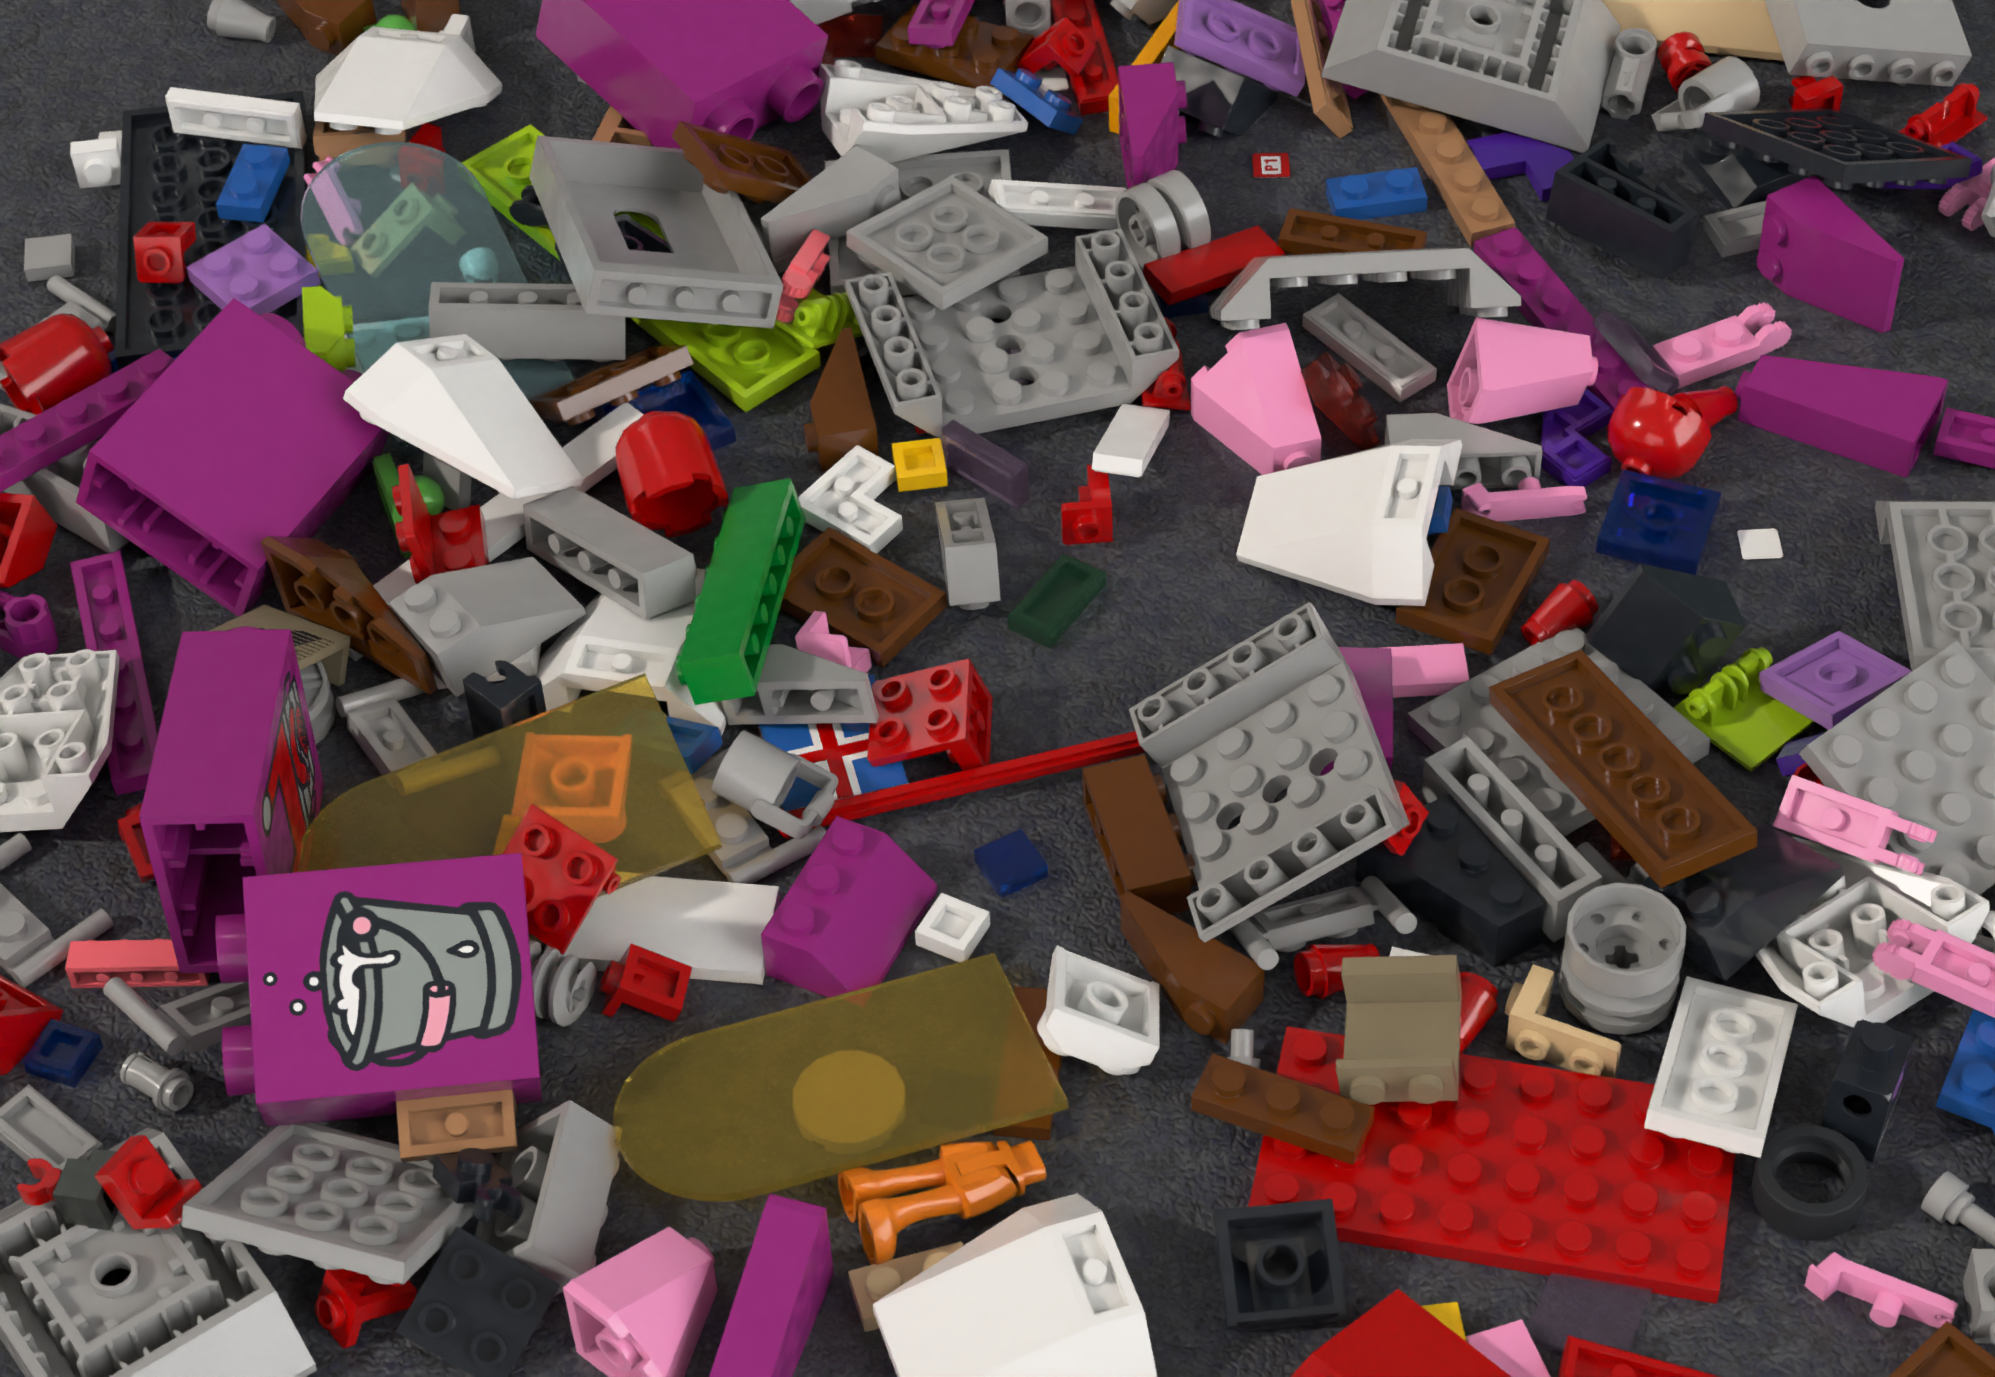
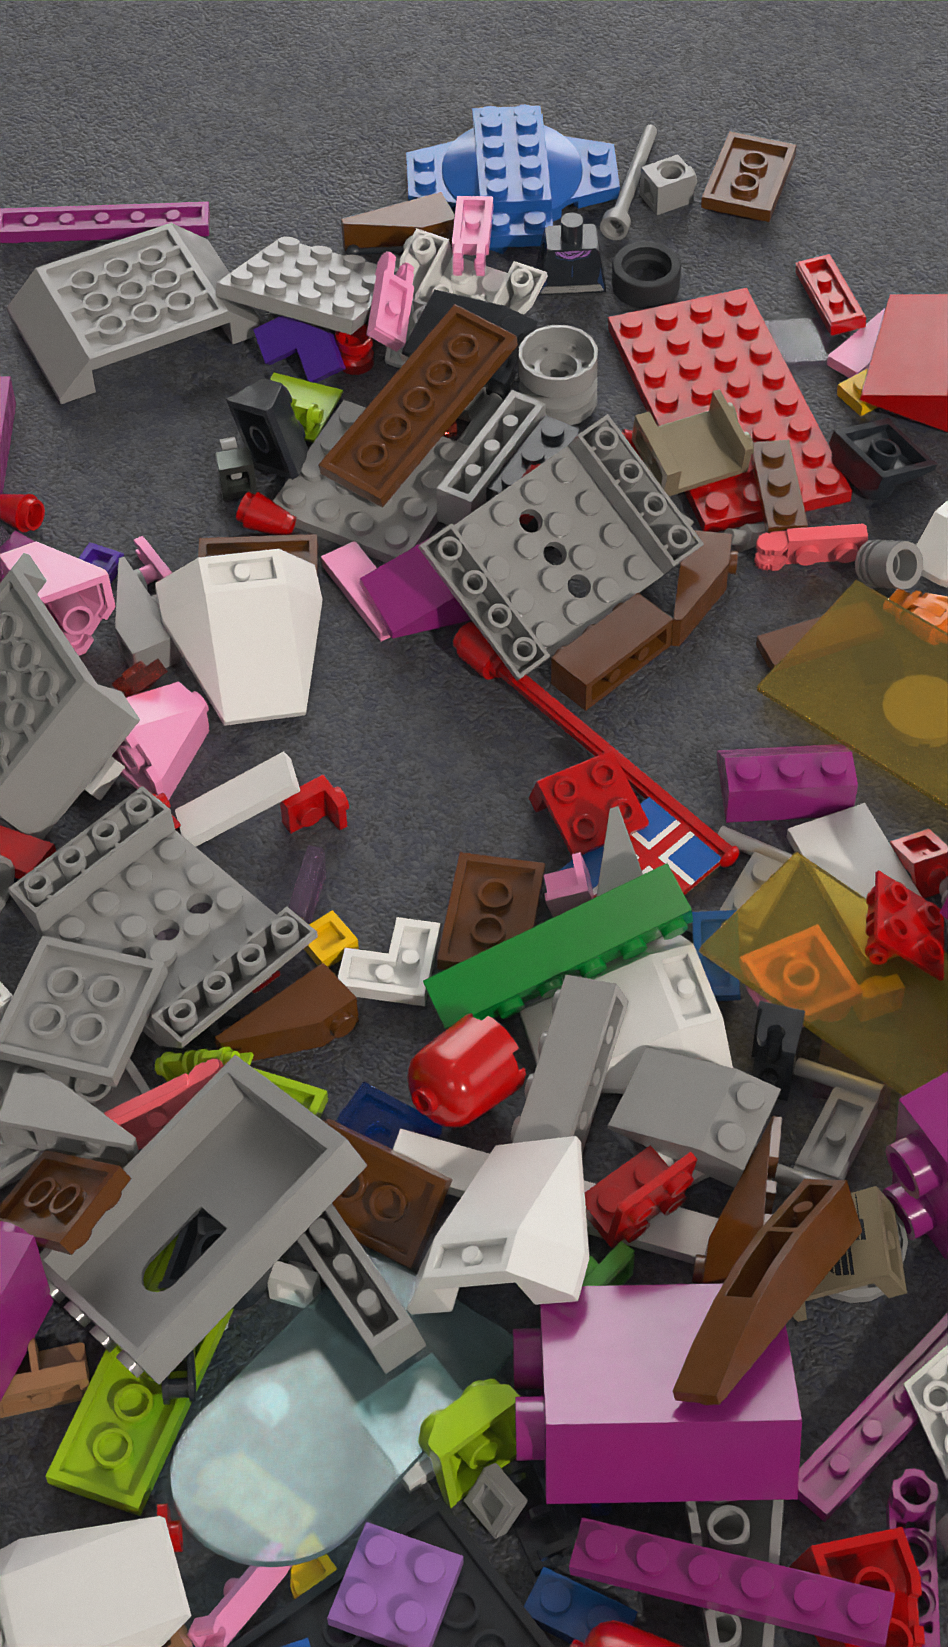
camera: 120 degrees left, 5 degrees up
(233, 511) = (768, 1287): none -> reddish brown slope
(761, 777) = (723, 851): light grey piece -> none
(952, 928) = (752, 717): white plate -> none
(968, 553) = (401, 863): light grey slope -> none
(1010, 863) = (671, 718): clear blue tile -> none
(1056, 600) = (411, 800): clear green tile -> none
(1085, 1160) = (889, 564): none -> light grey piece
(1100, 1014) = (771, 599): white slope -> none
(1172, 1120) = (809, 546): none -> coral hinge
(1552, 1040) = (621, 410): tan bracket -> none
(1654, 436) = (70, 512): red cylinder -> none
(1658, 522) = (143, 496): clear blue plate -> none
(1721, 1067) = (616, 308): white plate -> none
(1760, 544) = (124, 453): white sticker -> none
(1831, 678) = (256, 351): medium lavender plate -> none
(1886, 1293) = (699, 251): bright pink piece -> none

